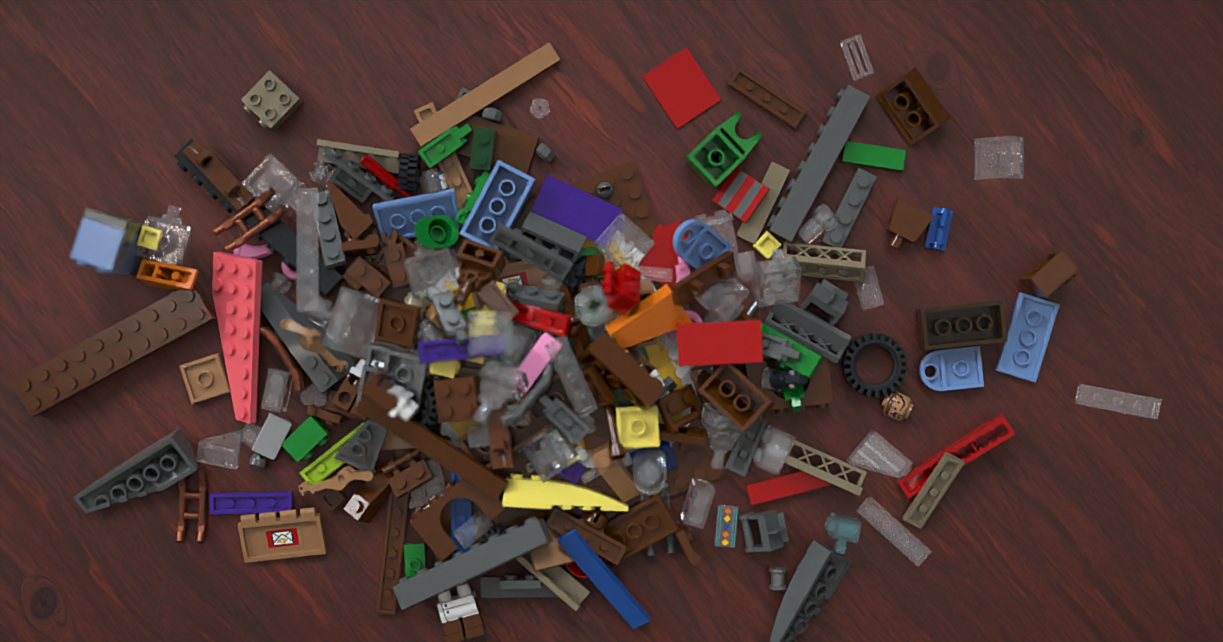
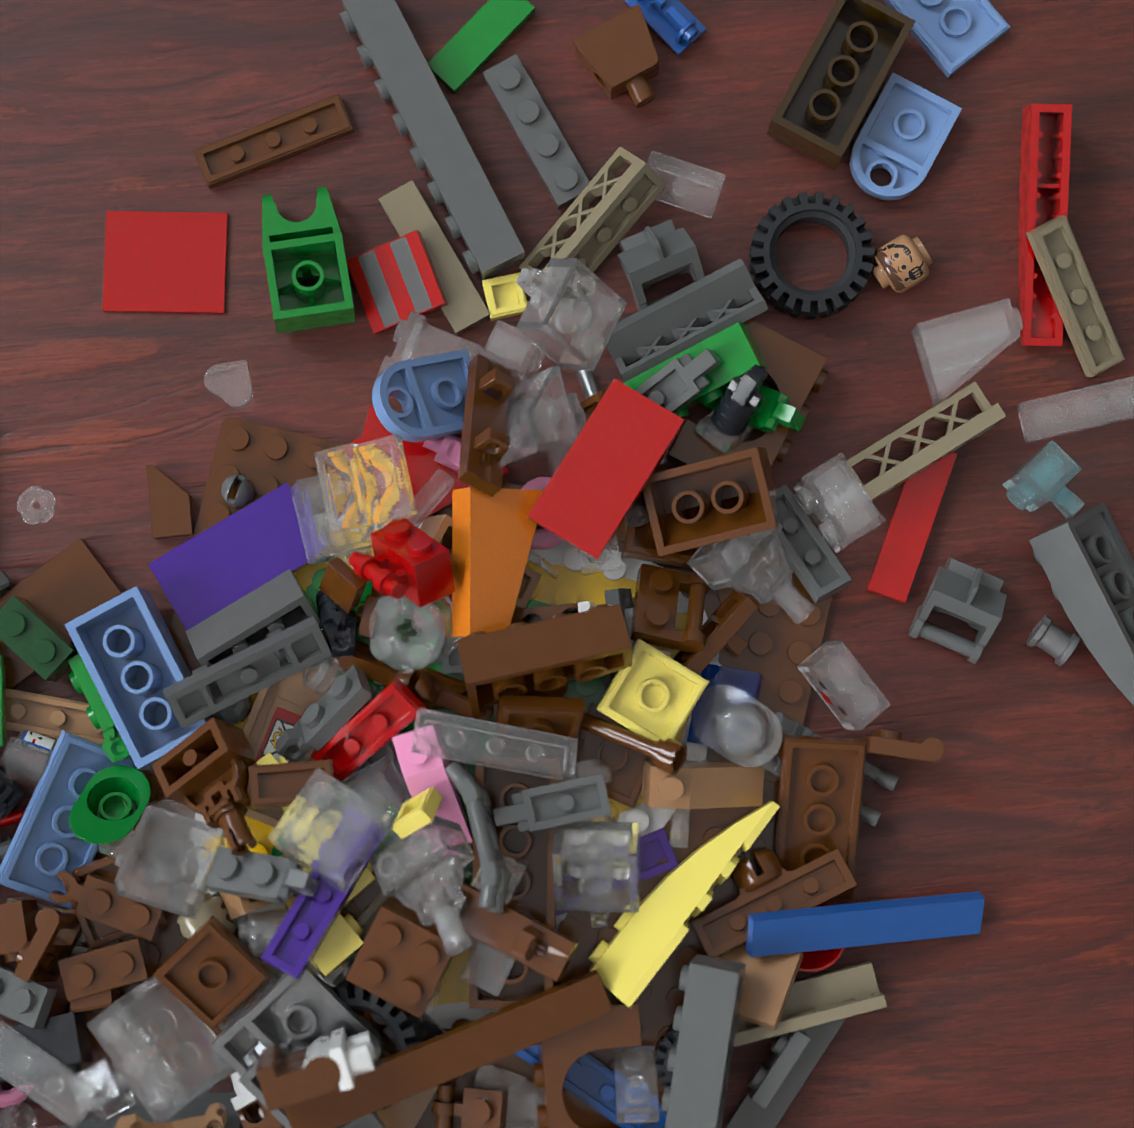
camera: 50 degrees left, 5 degrees down
(521, 364) = (417, 812): none -> light yellow tile
(545, 153) = (112, 544): dark grey tile -> none
(578, 164) = (169, 507): none -> reddish brown tile
(643, 246) = (365, 484): none -> clear slope
(649, 153) = (231, 382): none -> clear tile
(726, 526) = (911, 666): clear tile -> none
(823, 220) = (525, 181): clear piece -> none

